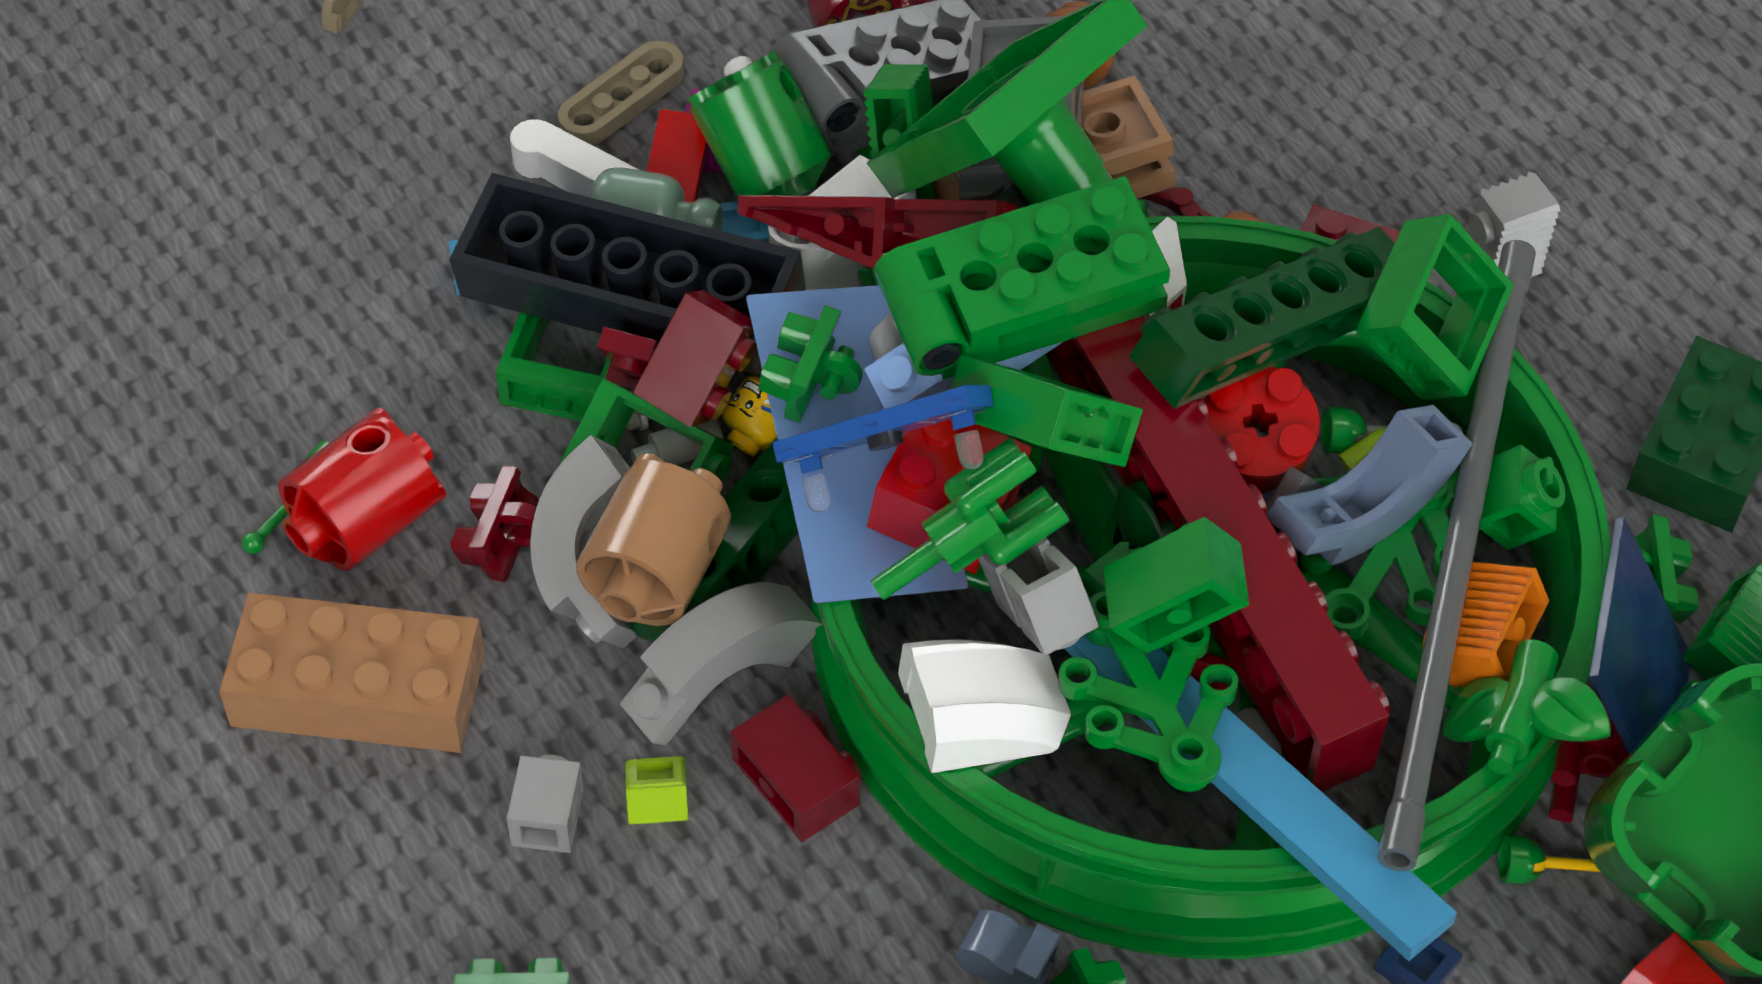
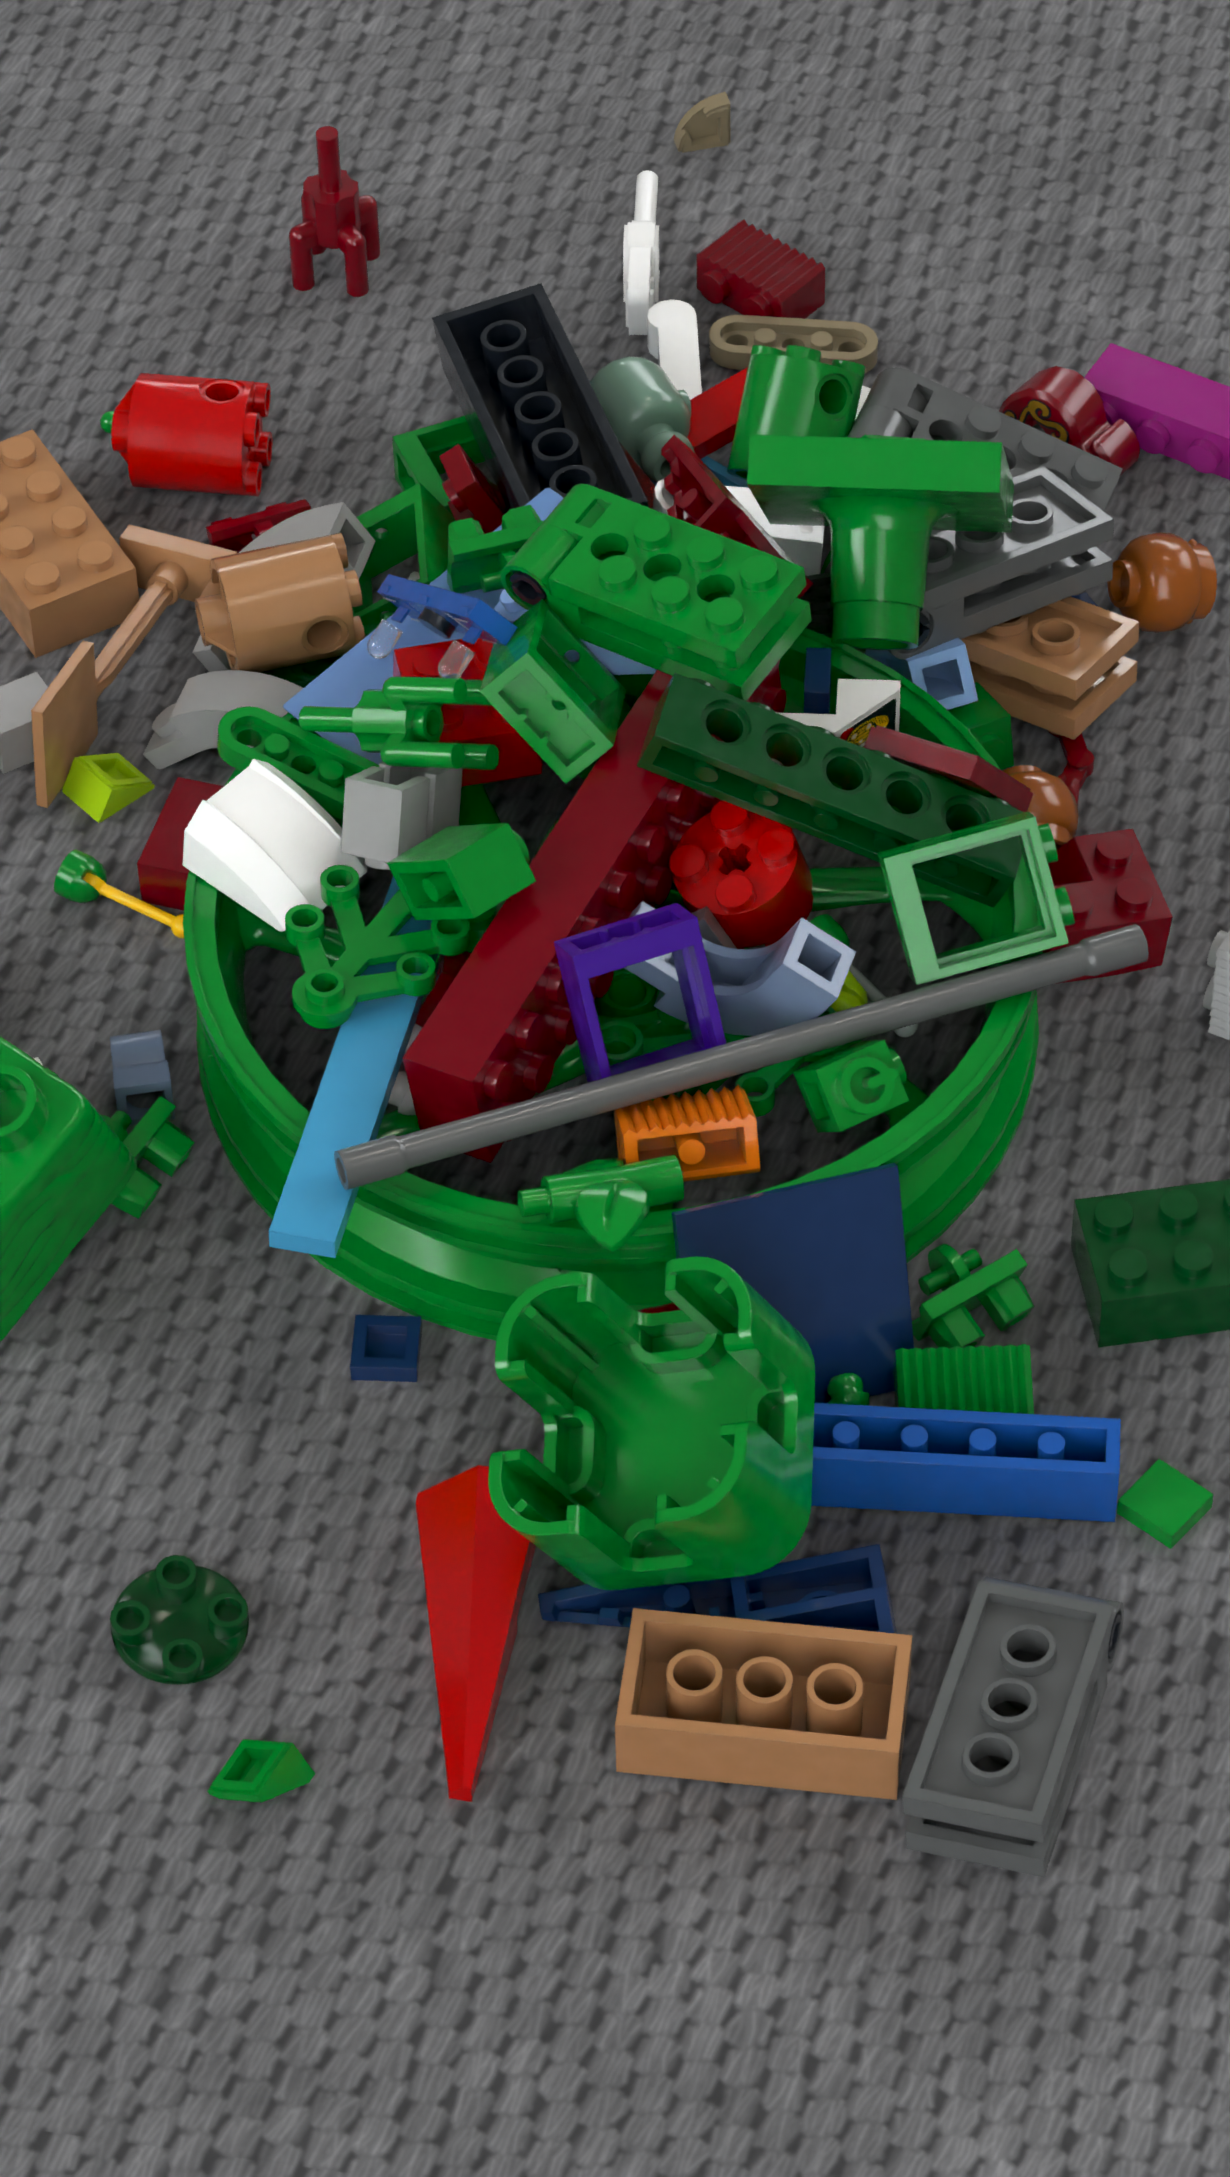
camera: 55 degrees right, 5 degrees down
(223, 263) = (334, 220): none -> dark red plant
(446, 116) = (641, 255): none -> white piece
(487, 594) = (67, 711): none -> medium nougat piece
(535, 66) = (759, 275): none -> dark red brick
(697, 359) = (476, 489): dark red brick -> none
(756, 866) = (85, 880): none -> hinge
(918, 611) = (290, 752): none -> green plate
(1289, 243) = (958, 766): none -> dark red tile
(1367, 521) = (627, 944): none -> dark purple window

